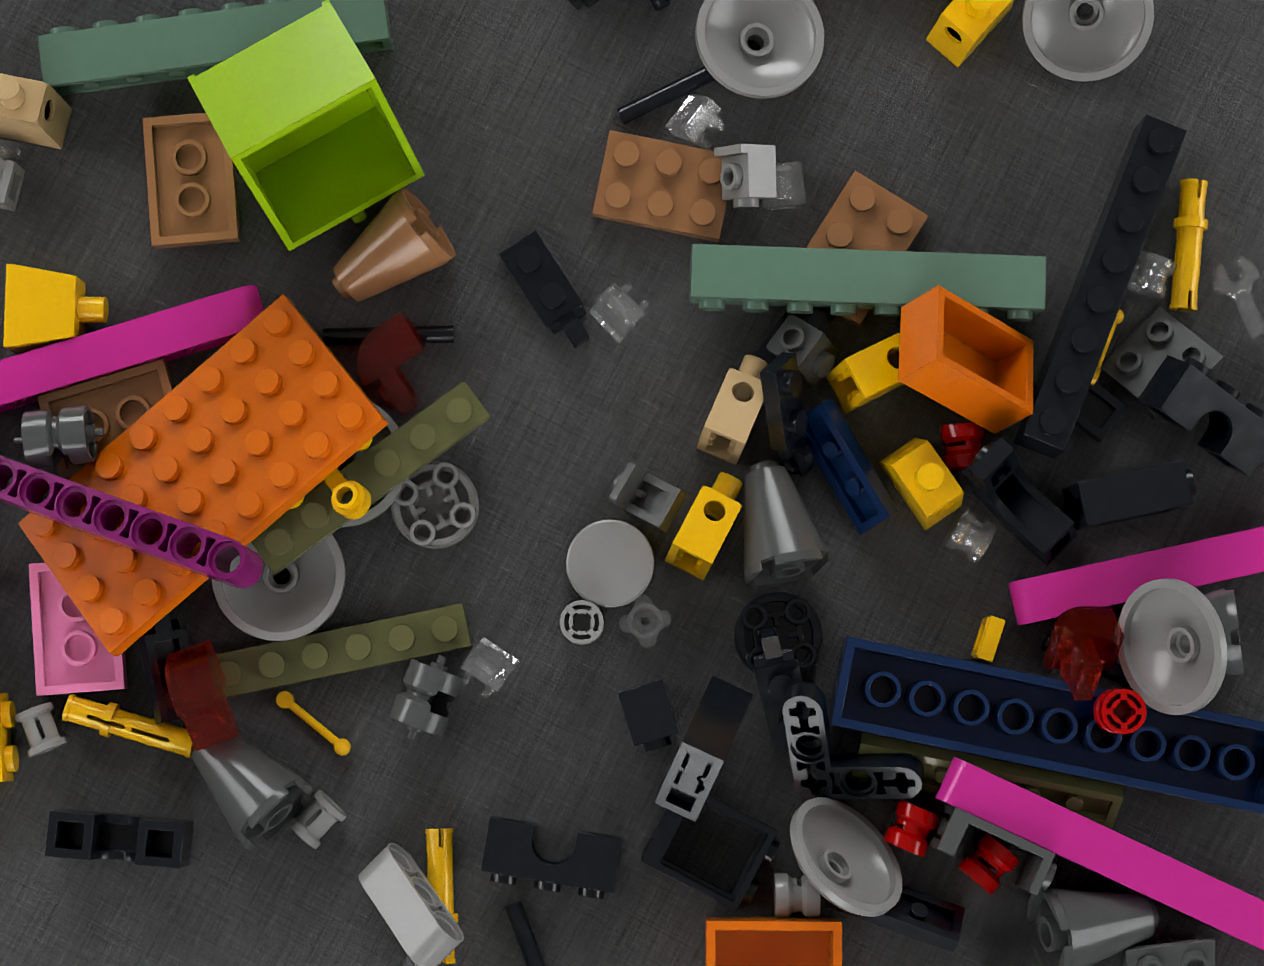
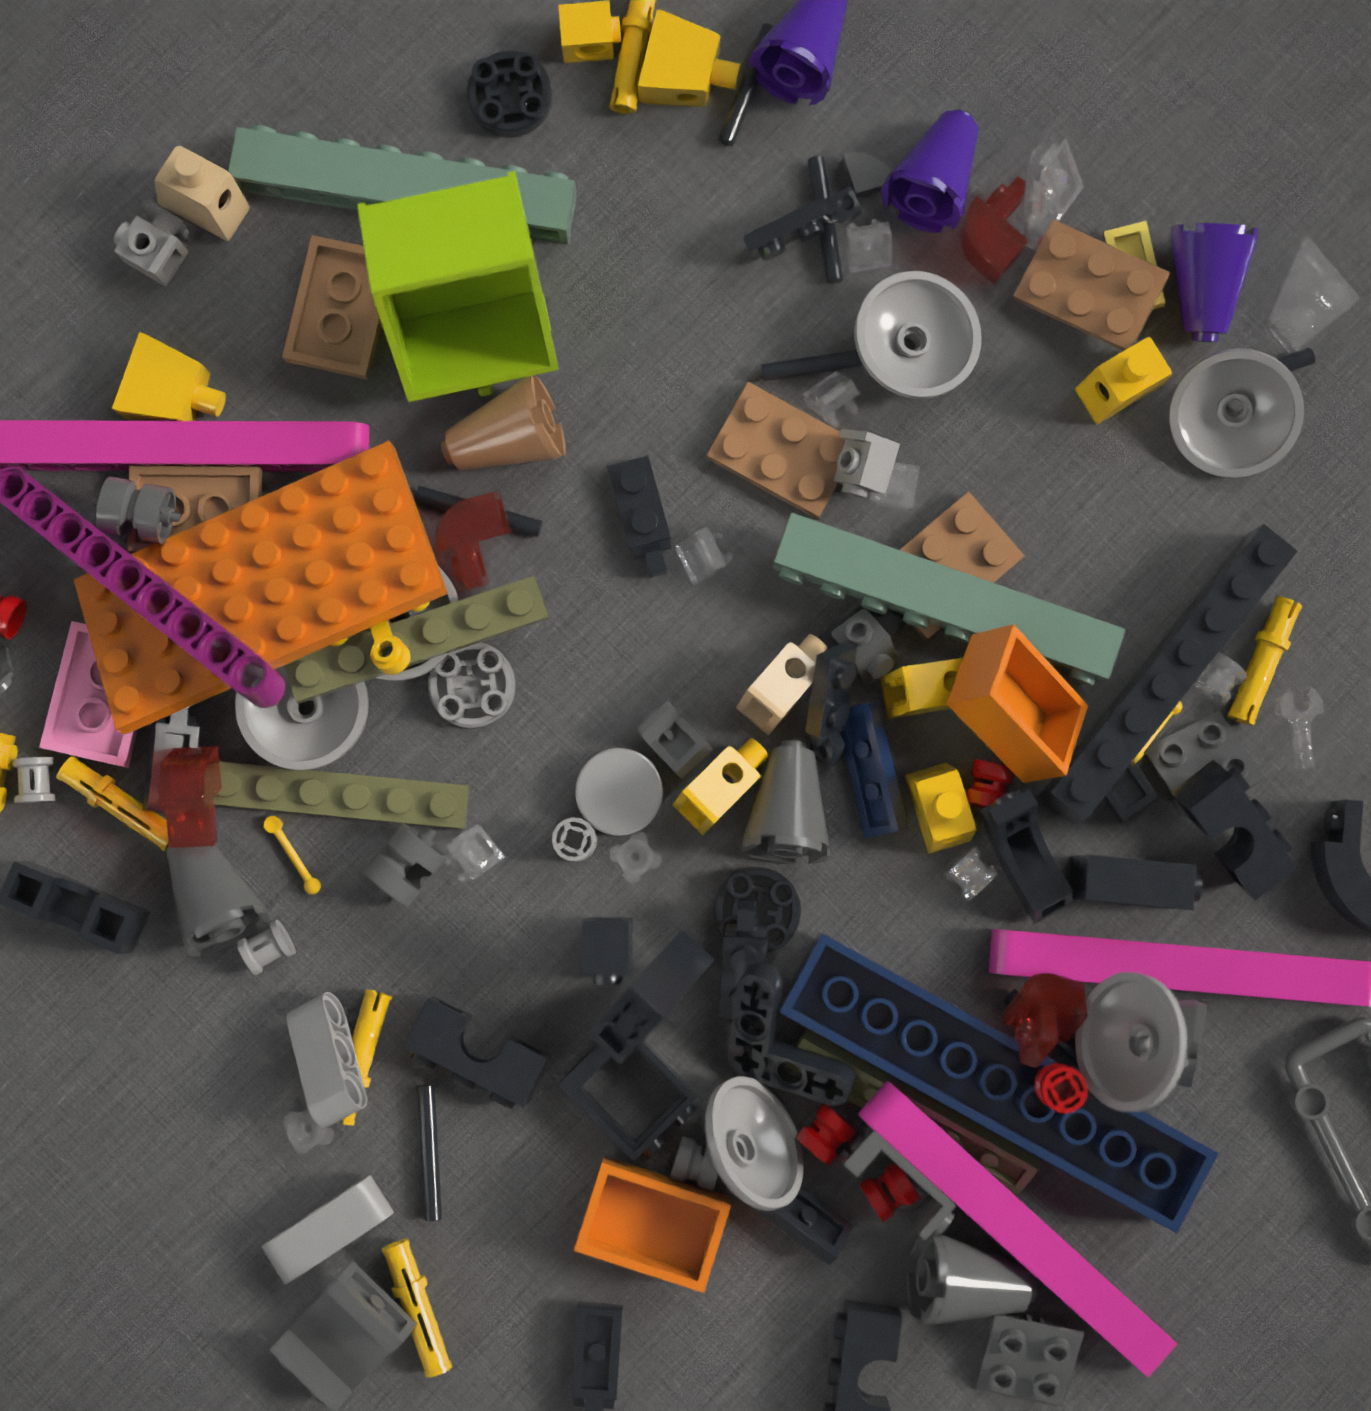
camera: 15 degrees right, 0 degrees up
(987, 639) = (955, 976): yellow tile -> none

